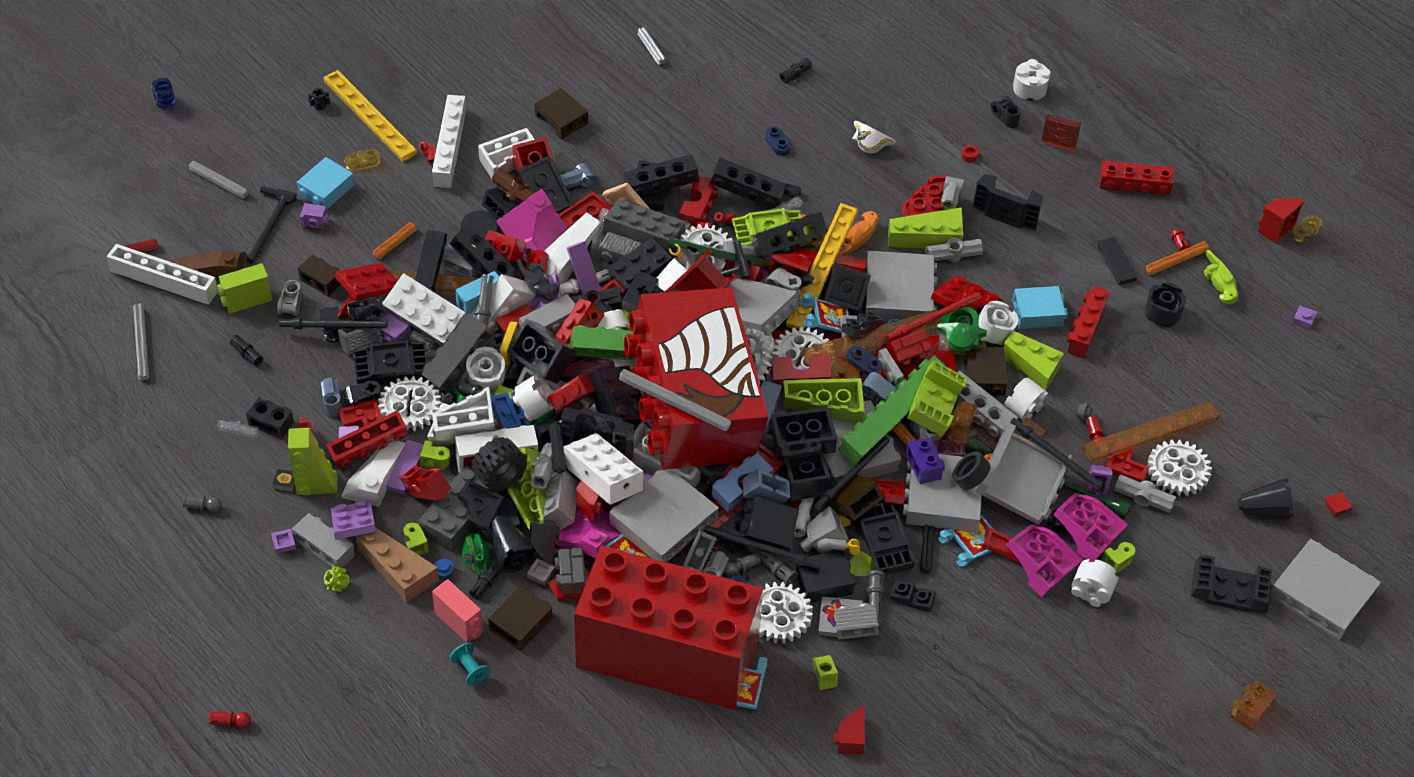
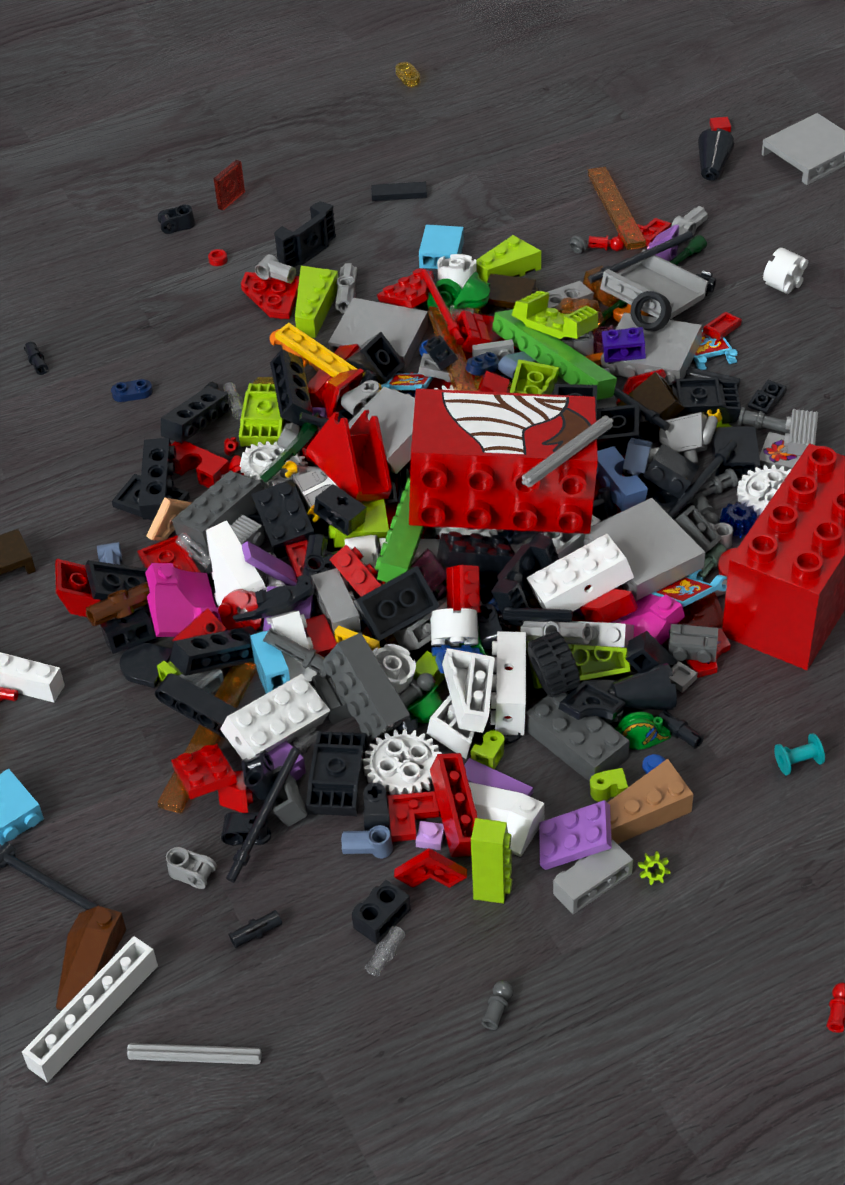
camera: 70 degrees left, 5 degrees down
(144, 246) = (19, 1039): red axle -> none
(244, 288) = (160, 908): lime brick -> none
(283, 480) = (481, 910): tile -> none
(283, 541) = (580, 920): medium lavender plate -> none
(314, 216) = (57, 825): medium lavender brick -> none
(319, 275) = (161, 830): dark brown brick -> none
(395, 240) = (131, 749): orange axle -> none
(426, 484) = (535, 765): red arch -> none
(457, 611) = (730, 750): coral brick -> none
(499, 152) = (47, 616): white wedge -> none
(520, 618) = (742, 702): dark brown brick -> none
(869, 139) = (168, 317): white hat -> none
(1026, 399) = (558, 270): white brick -> none
(1031, 80) = (145, 194): white brick -> none
(1043, 557) = (749, 295): dark pink slope -> none
(1088, 322) = (473, 218): red brick -> none
(1090, 524) = (718, 259): dark pink slope -> none
(1120, 557) = (751, 257): lime leg -> none
(1136, 177) = (303, 156): red brick -> none
(1165, 304) = (470, 167): black brick -> none
(1177, 258) = (410, 154): orange axle -> none
(1178, 236) = (391, 147): red pin -> none
(1179, 467) = (660, 200): white gear -> none
(1221, 279) = (448, 131): lime animal -> none
(1231, 587) = (799, 197): black plate -> none
(1280, 217) = (398, 80): red slope -> none
(1304, 317) = (507, 98): medium lavender plate -> none

